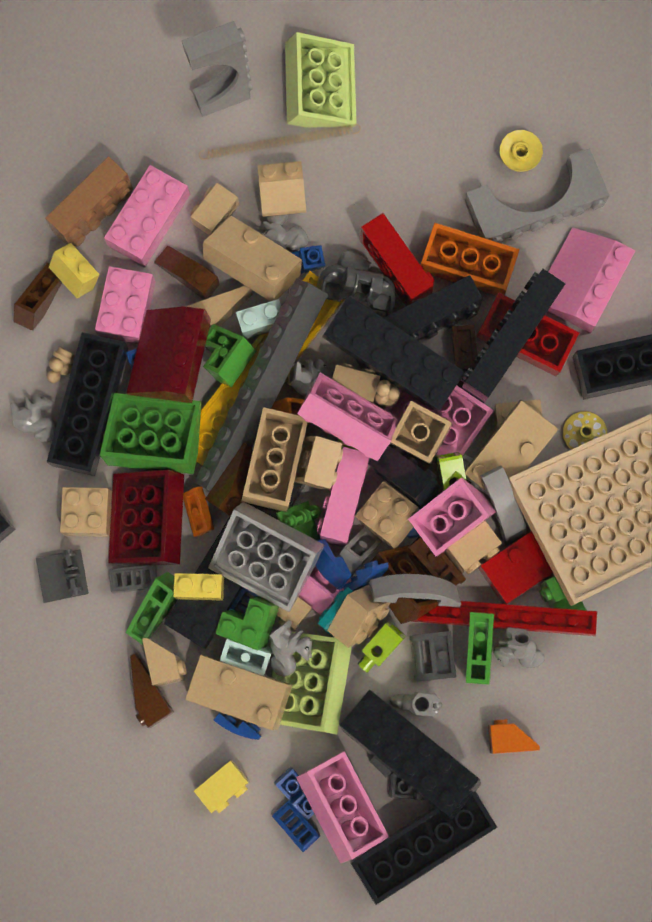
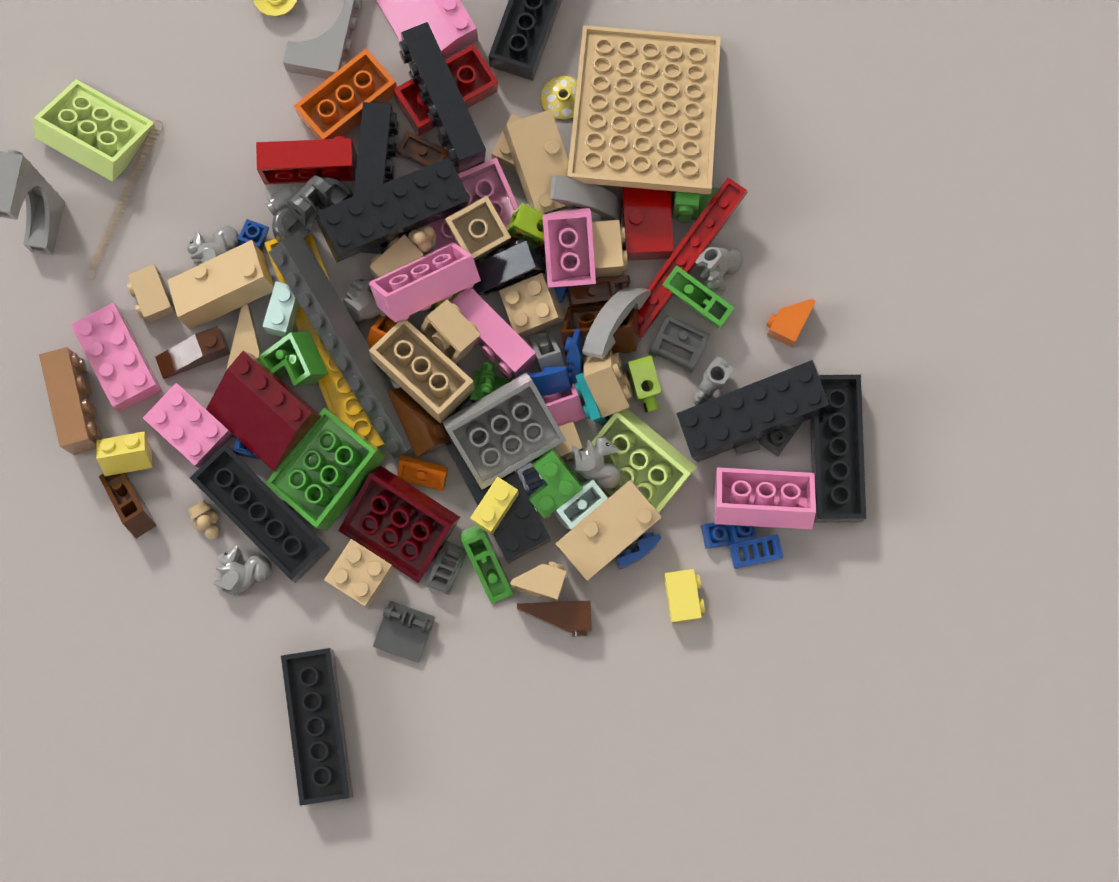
camera: 60 degrees left, 0 degrees up
(282, 188) = (171, 221): tan slope -> none

